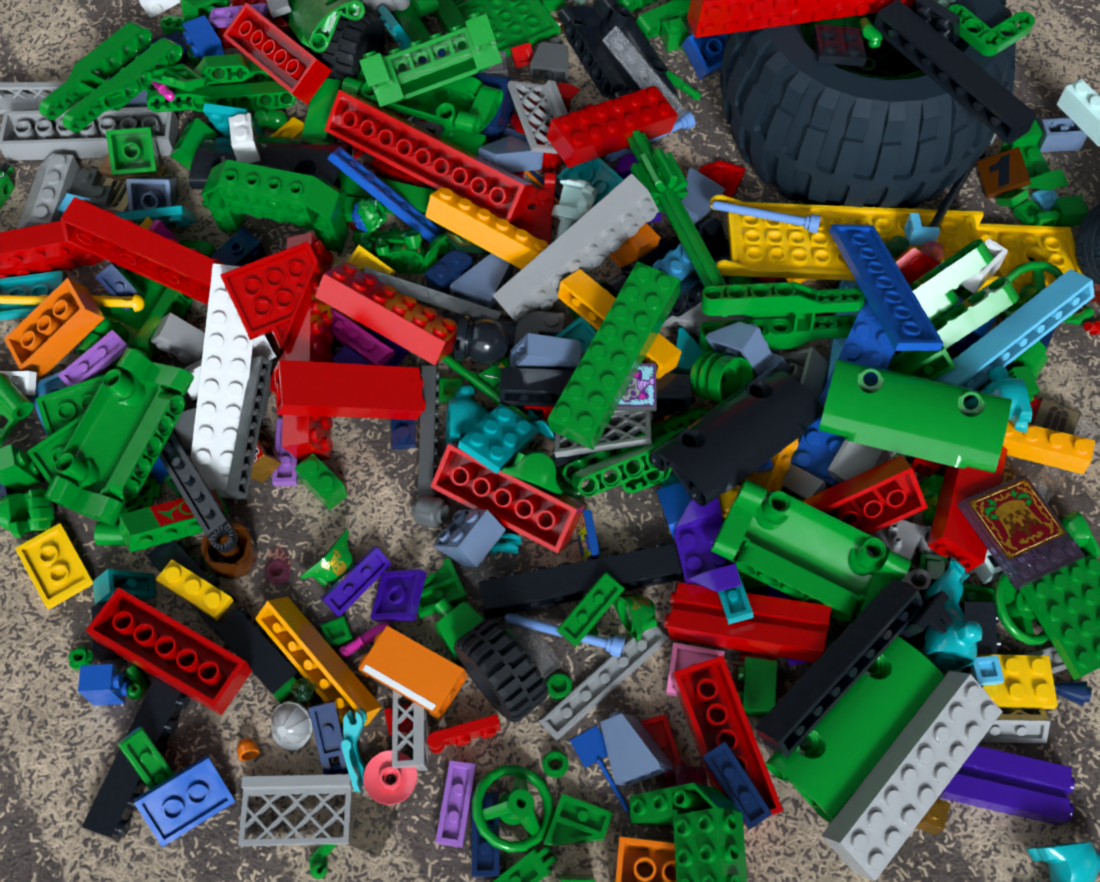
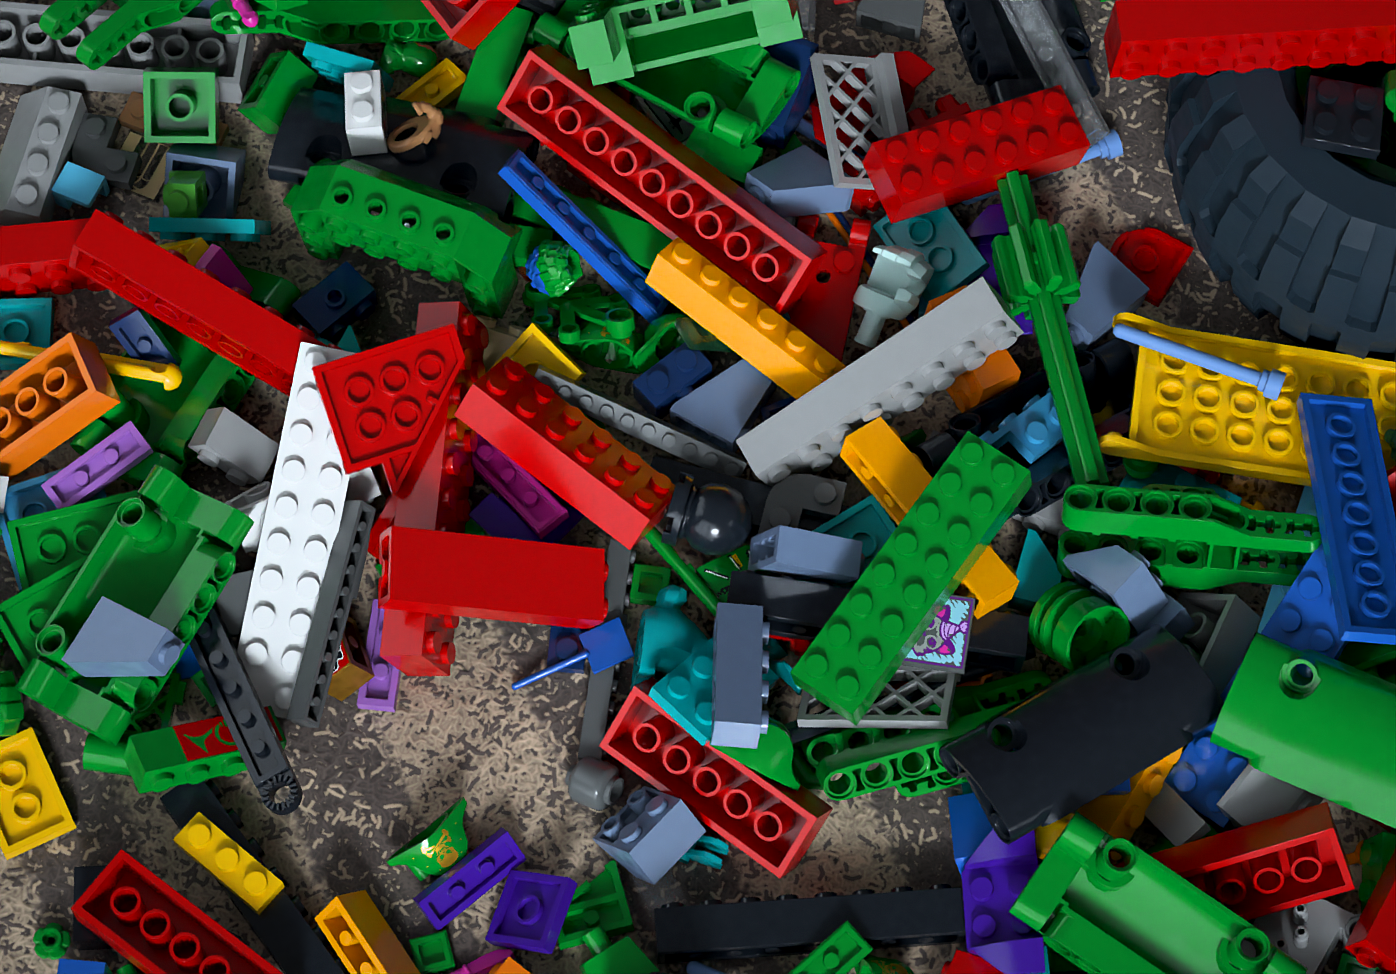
camera: 10 degrees right, 5 degrees up
(111, 459) = (122, 644): none -> sand blue slope
(135, 583) = (107, 834): teal slope -> none
(139, 199) = (185, 194): none -> bright green brick
(237, 561) = (290, 829): reddish brown brick -> none
(274, 566) = (350, 837): clear pink plate -> none
(278, 143) = (427, 127): none -> medium nougat piece
(321, 482) = (432, 713): green brick -> none
(424, 428) = (602, 646): none -> blue piece
(514, 426) = (737, 676): none -> sand blue brick
(587, 536) = (830, 856): blue tile -> none
(684, 87) = (1099, 58): green piece -> none

